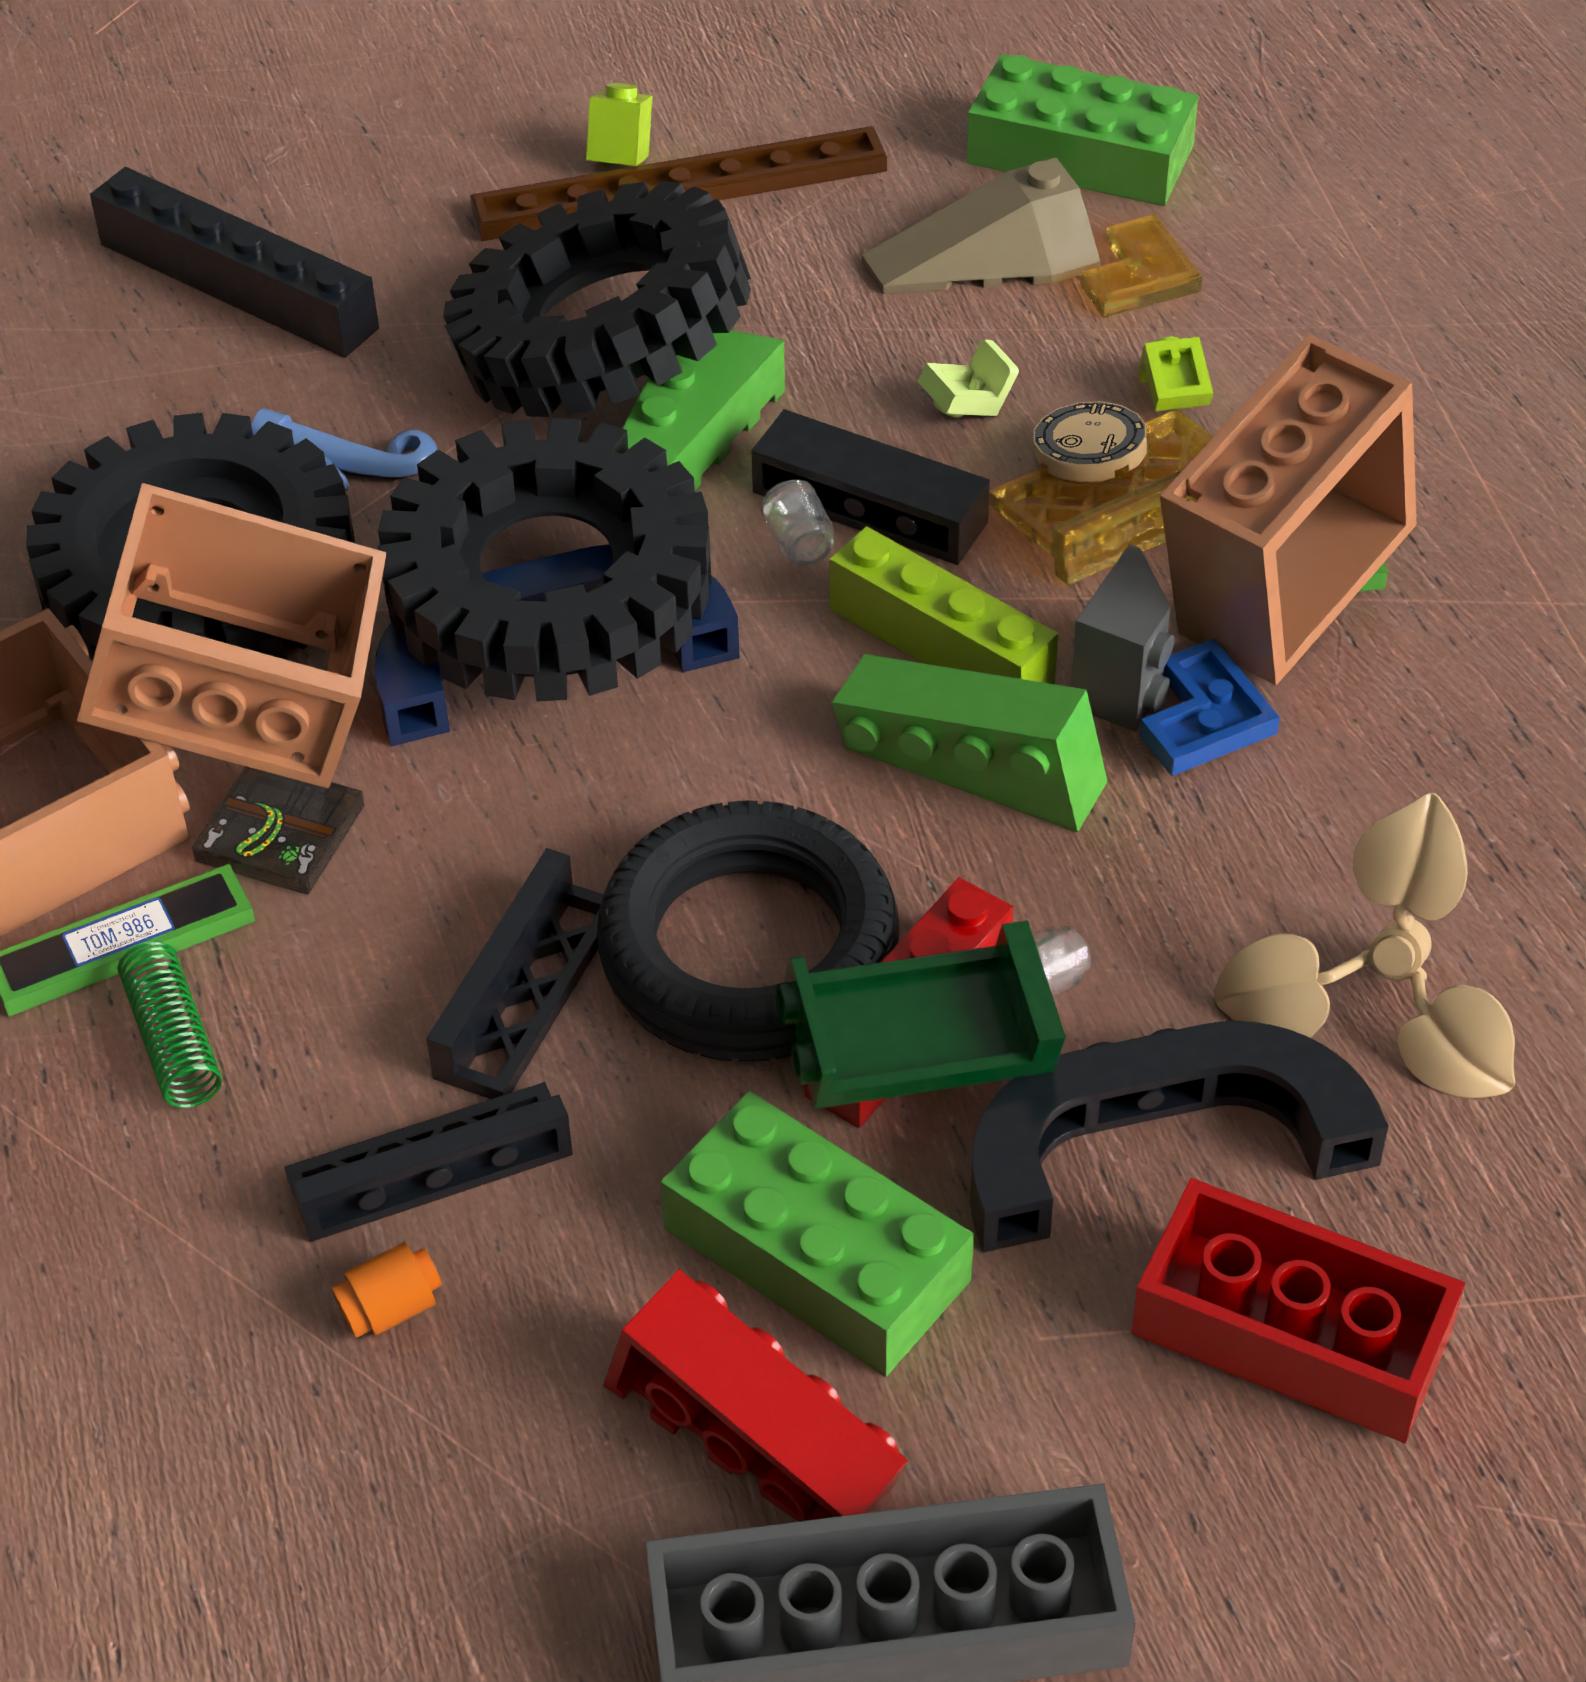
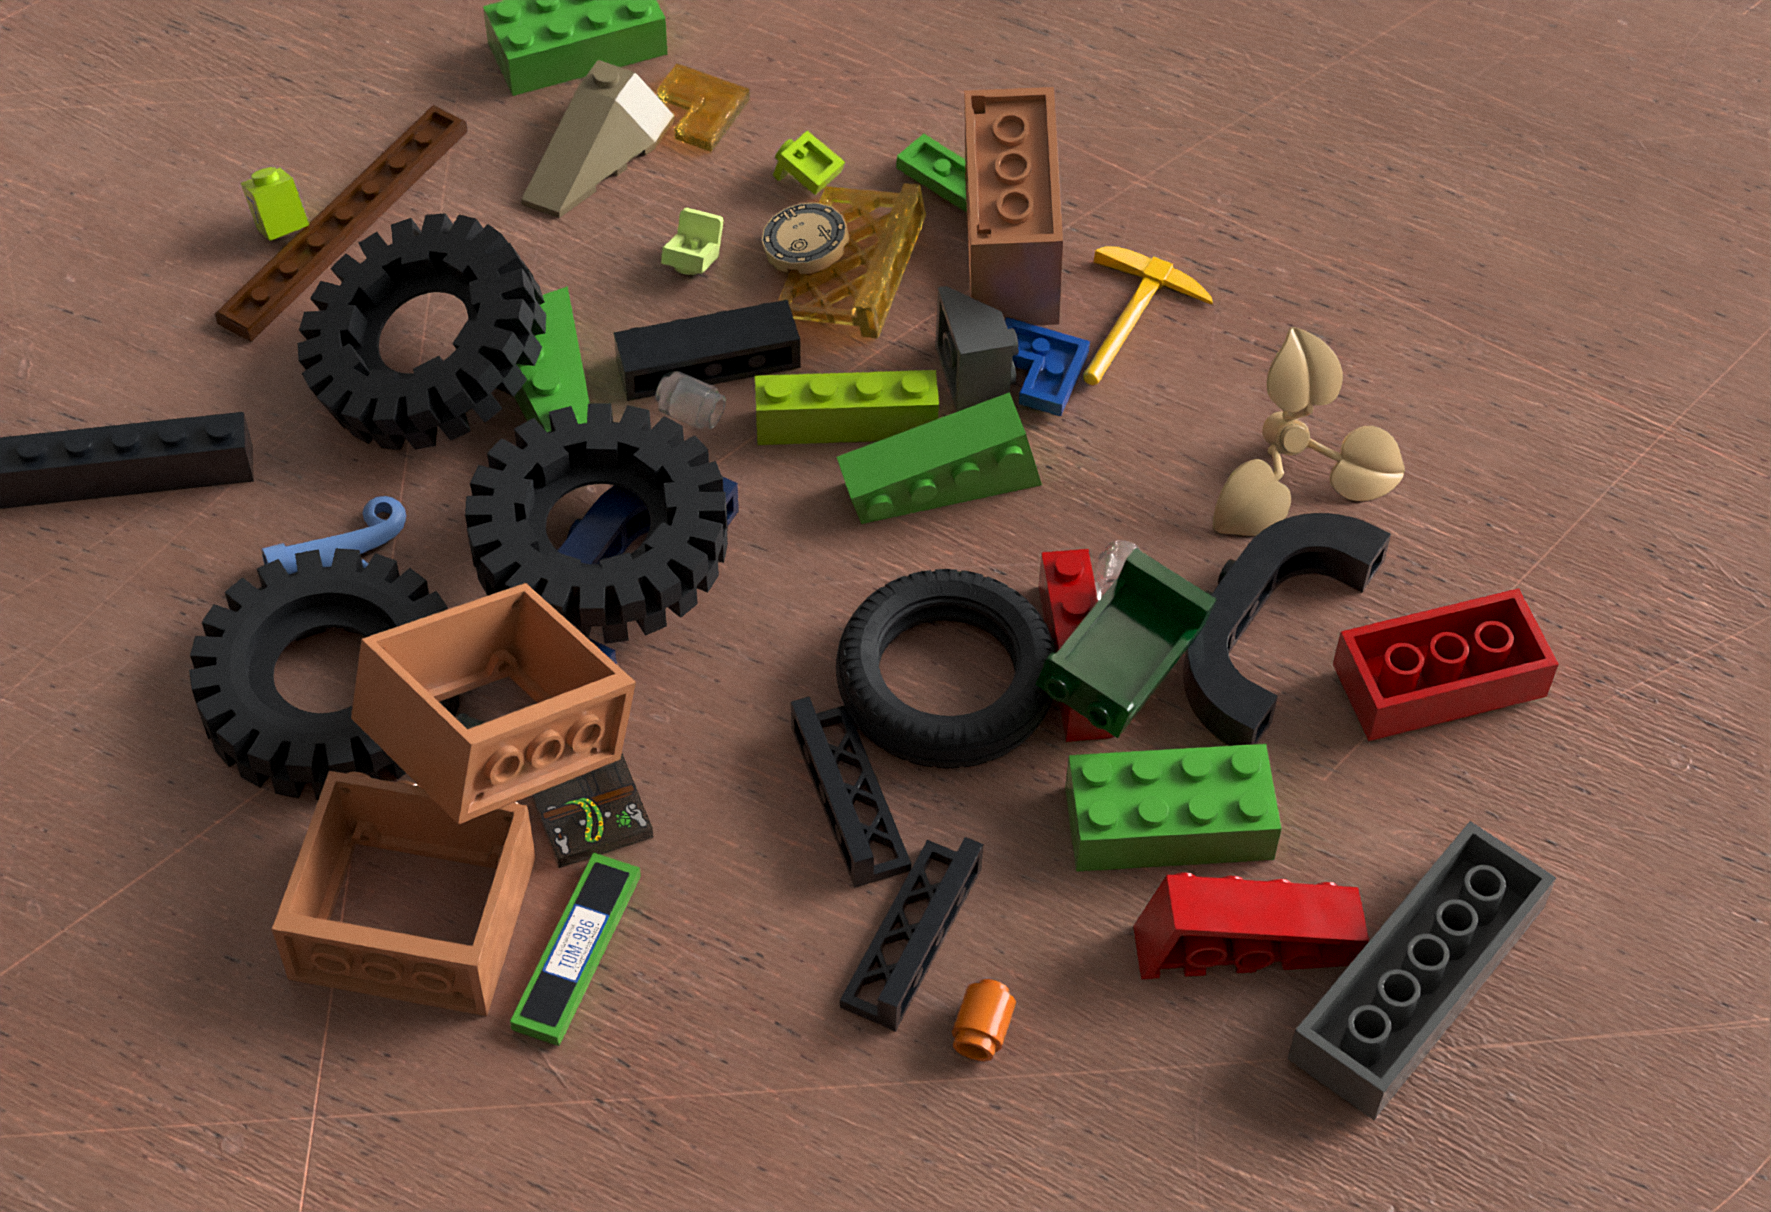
camera: 45 degrees left, 5 degrees up
(187, 1068) = (736, 980): green piece -> none
(1447, 702) = (1154, 275): none -> yellow piece

